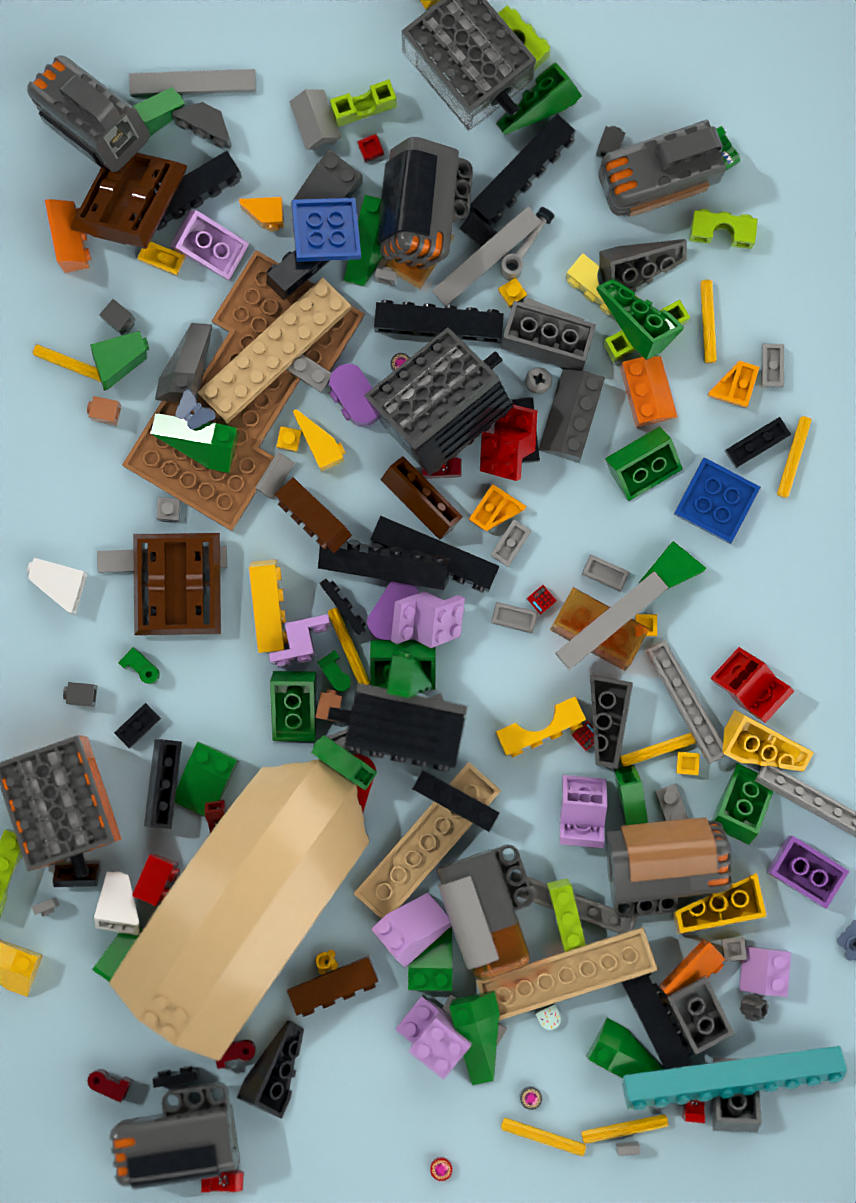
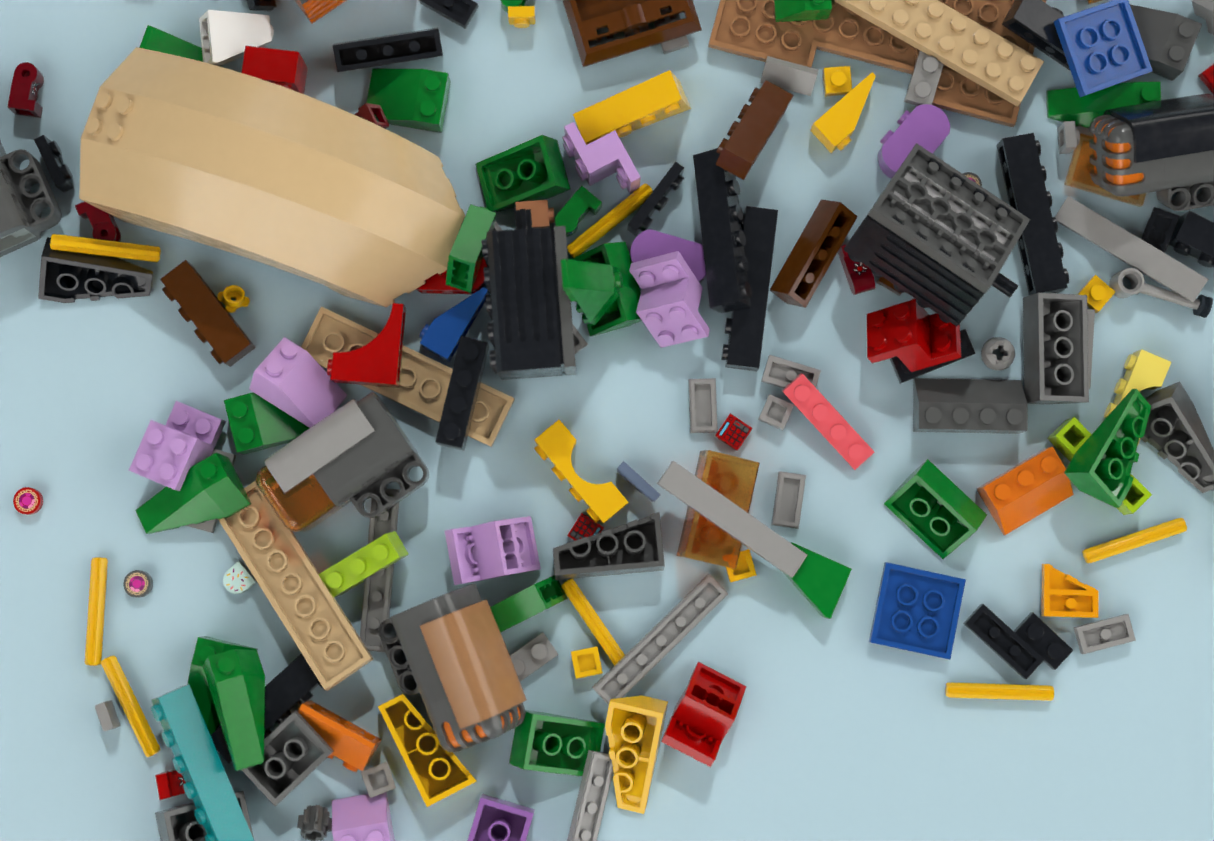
camera: 70 degrees right, 0 degrees up
(166, 670) = (521, 16): none -> yellow plate
(258, 1053) = (105, 248): none -> yellow axle
(400, 798) = (445, 331): none -> blue slope
(412, 862) = (377, 361): none -> red arch
(495, 509) = (826, 346): light orange wing -> none
(535, 562) = (776, 412): none -> light grey plate
(554, 525) = (828, 421): none -> coral plate
(560, 684) = (637, 481): none -> sand blue tile
(643, 1038) = (239, 699): none -> green wedge
(765, 412) = (1043, 640): none -> black plate

